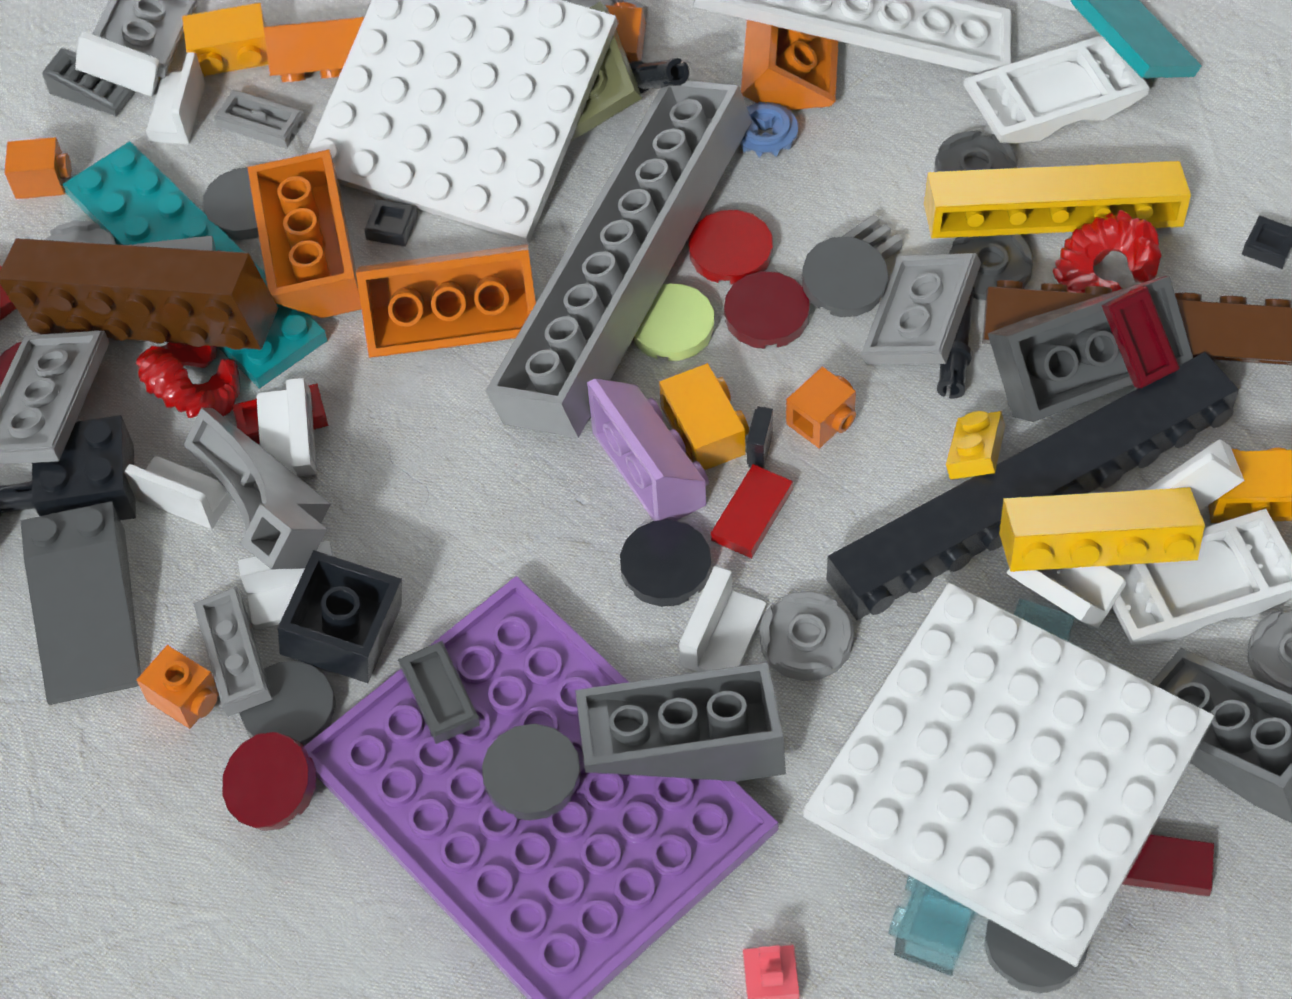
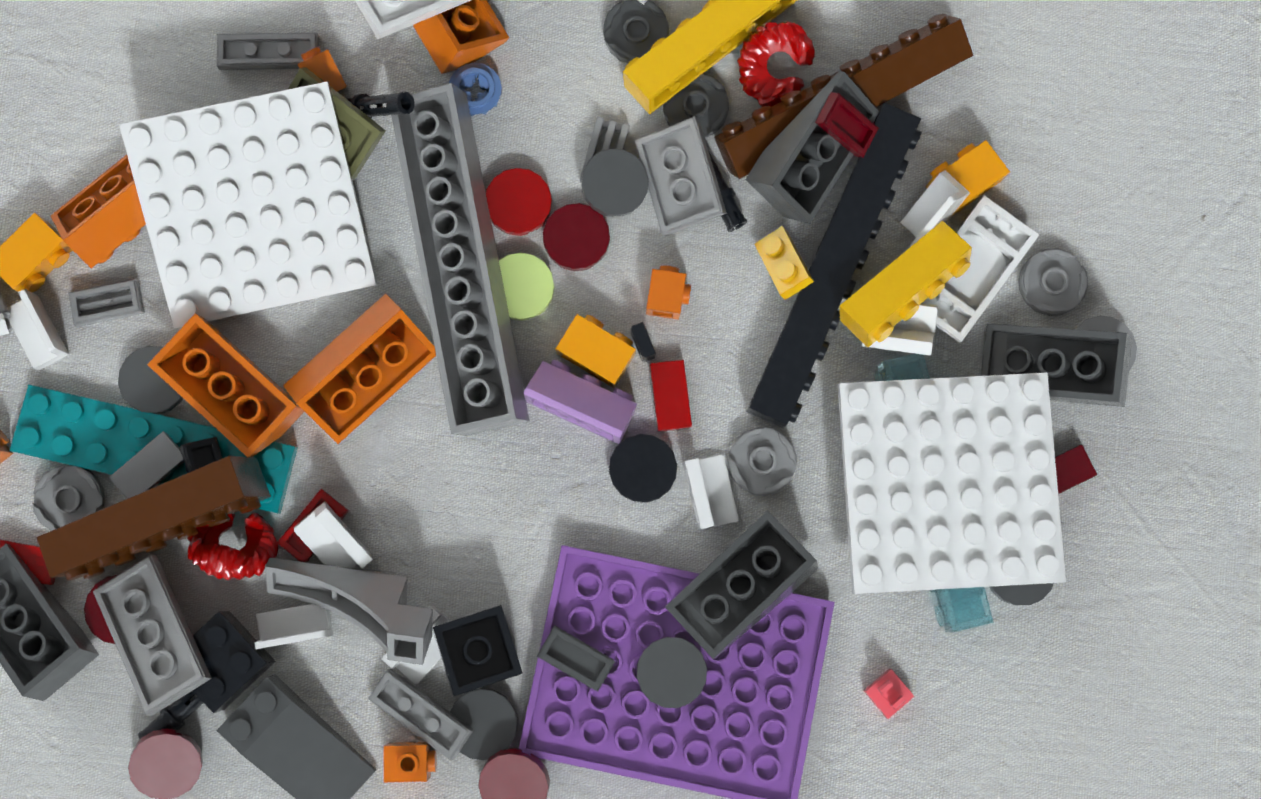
camera: 45 degrees left, 25 degrees up
(391, 222) = (270, 329): black tile -> none

